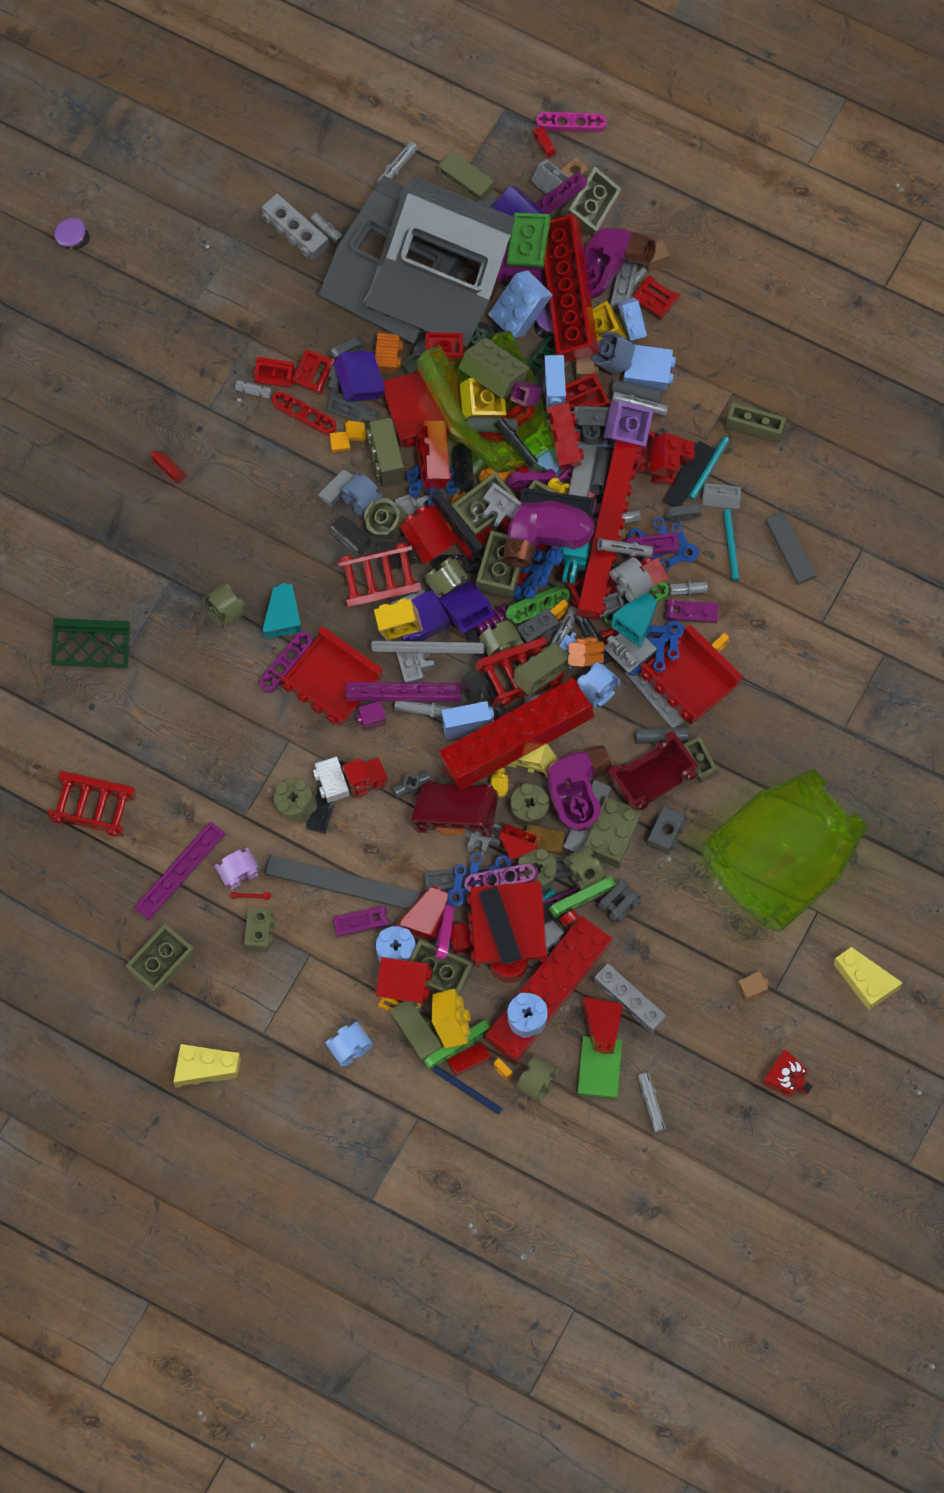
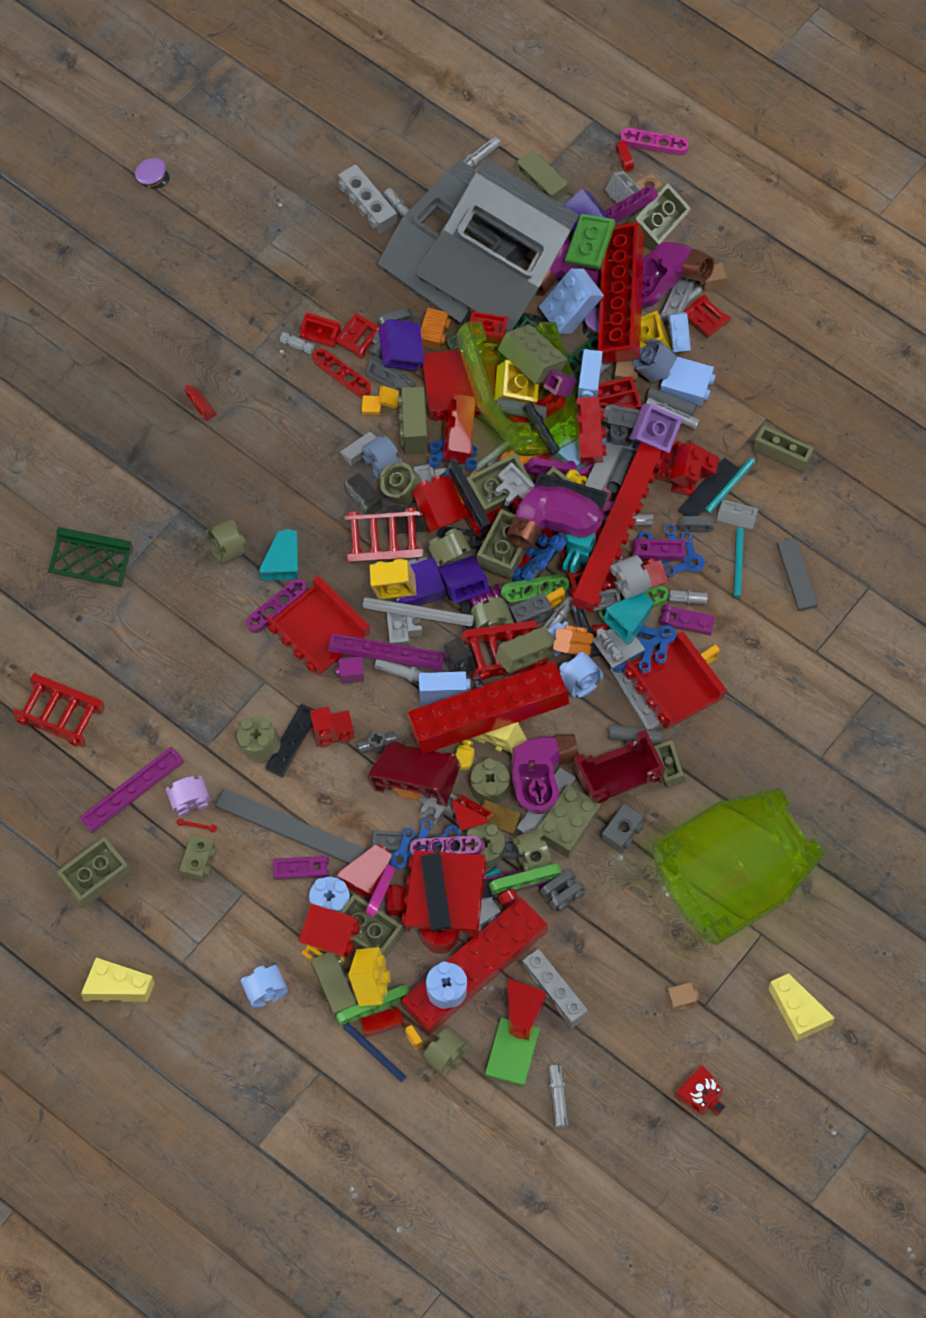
camera: 10 degrees right, 5 degrees down
(331, 780) = (298, 724): white brick -> none
(467, 472) = (486, 456): black beam -> none
(645, 551) = (611, 539): light grey pin -> none

